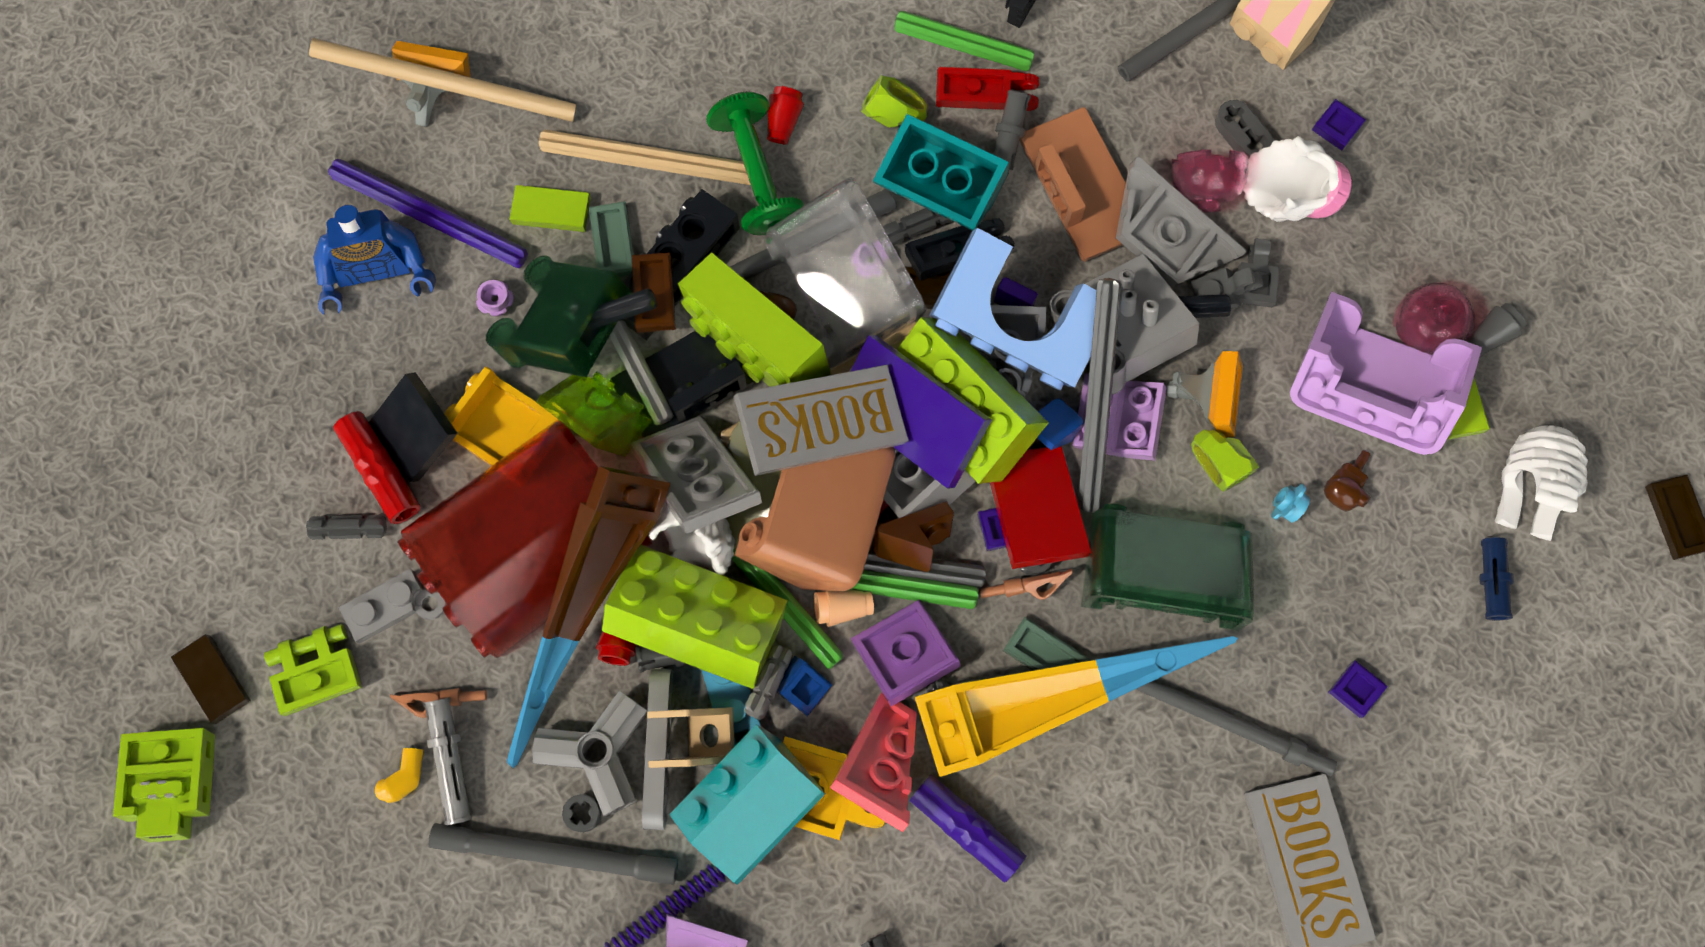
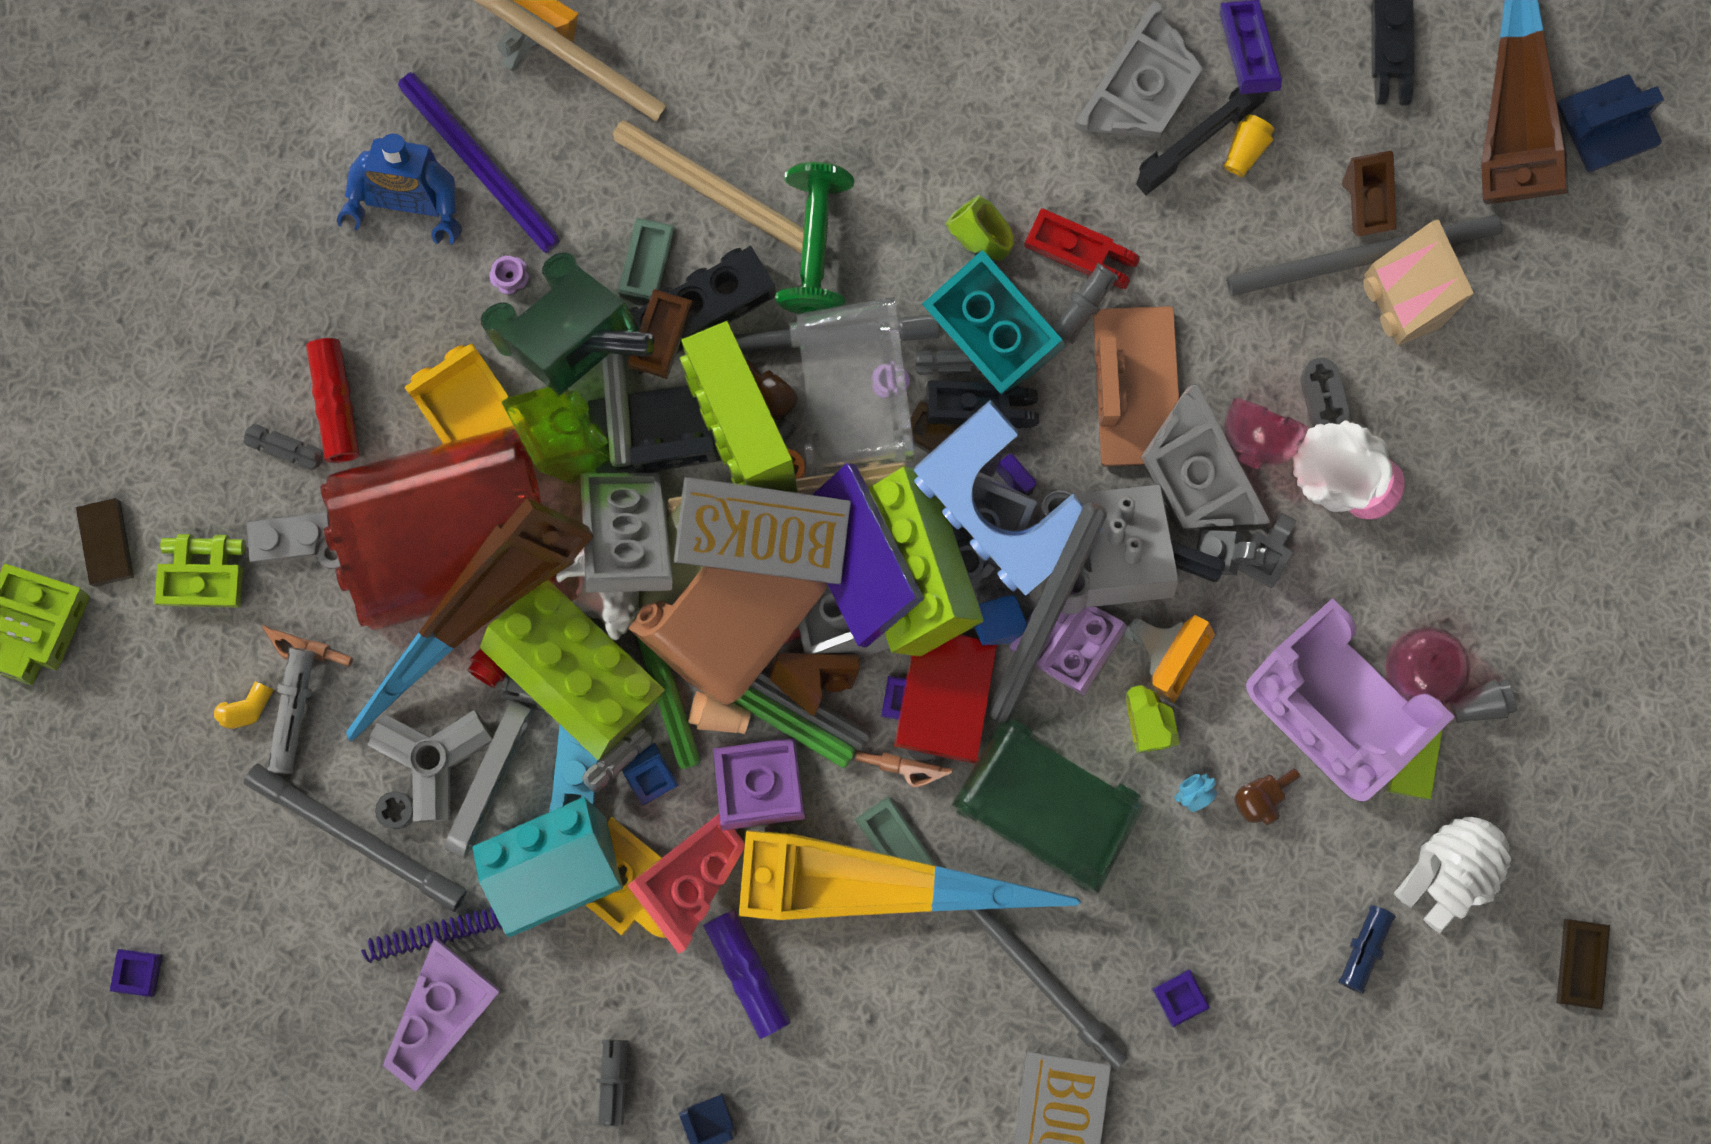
camera: 25 degrees right, 5 degrees up
(412, 427) = (380, 375): black tile -> none
(550, 208) = (598, 203): lime tile -> none
(699, 752) = (527, 801): tan piece -> none
(783, 113) = (867, 195): red cone -> none
(964, 40) = (1082, 188): bright green axle -> none
(1338, 124) = (1426, 426): dark purple tile -> none

